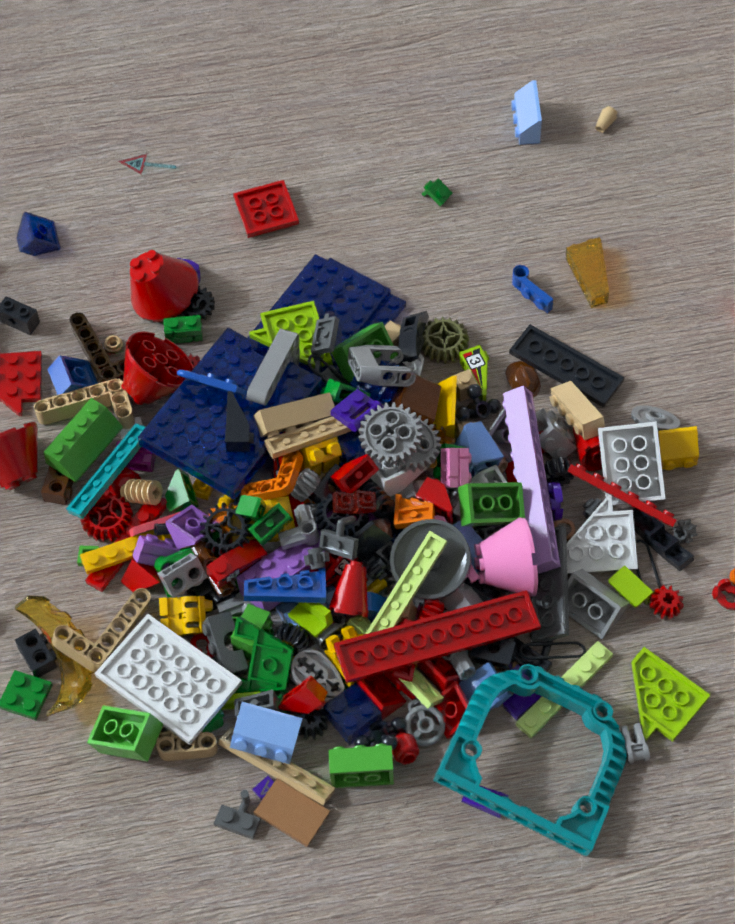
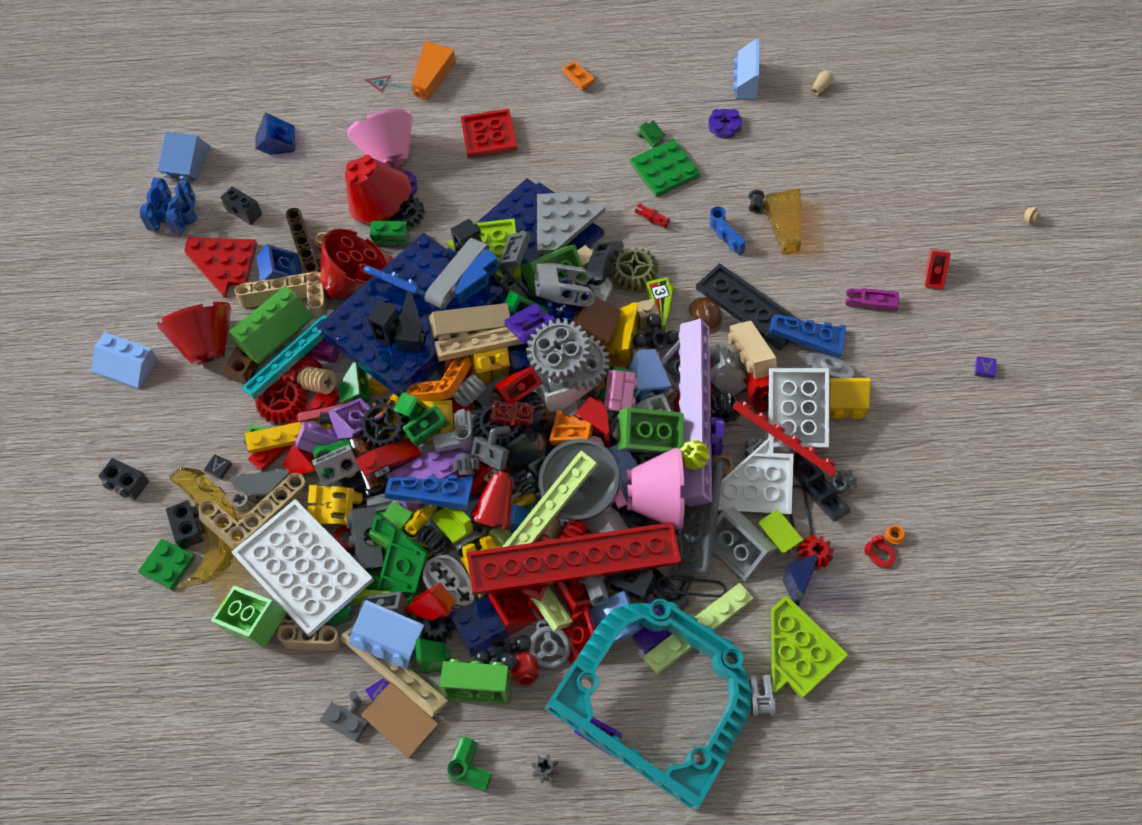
camera: 10 degrees right, 0 degrees up
(55, 591) = (217, 466): none -> black tile
(90, 619) = (234, 501): none -> light grey bush
(104, 605) = (260, 484): none -> dark grey slope
(160, 227) = (384, 136): none -> bright pink cone
(192, 140) = (431, 69): none -> orange slope
(212, 427) = (384, 323): none -> black brick
(269, 325) = (463, 232): none -> black brick
(279, 617) = (420, 518): none -> yellow pin
(293, 367) = (476, 276): none -> blue slope
(313, 748) = (431, 655): none -> green slope
(349, 135) = (578, 75): none -> orange plate
(363, 294) = (563, 218): none -> light grey wing
(371, 853) = (471, 776): none -> green piece
(440, 844) = (548, 773): none -> dark grey gear
(453, 281) = (652, 215): none -> red pin
(457, 227) = (665, 167): none -> green plate
(513, 164) = (733, 120): none -> dark purple plate
(539, 521) = (694, 454): none -> neon yellow piece
(557, 254) = (756, 201): none -> black bush
(638, 389) = (817, 336): none -> blue wing
(652, 628) = (798, 576): none -> clear blue slope
(688, 344) = (873, 299): none -> magenta hinge

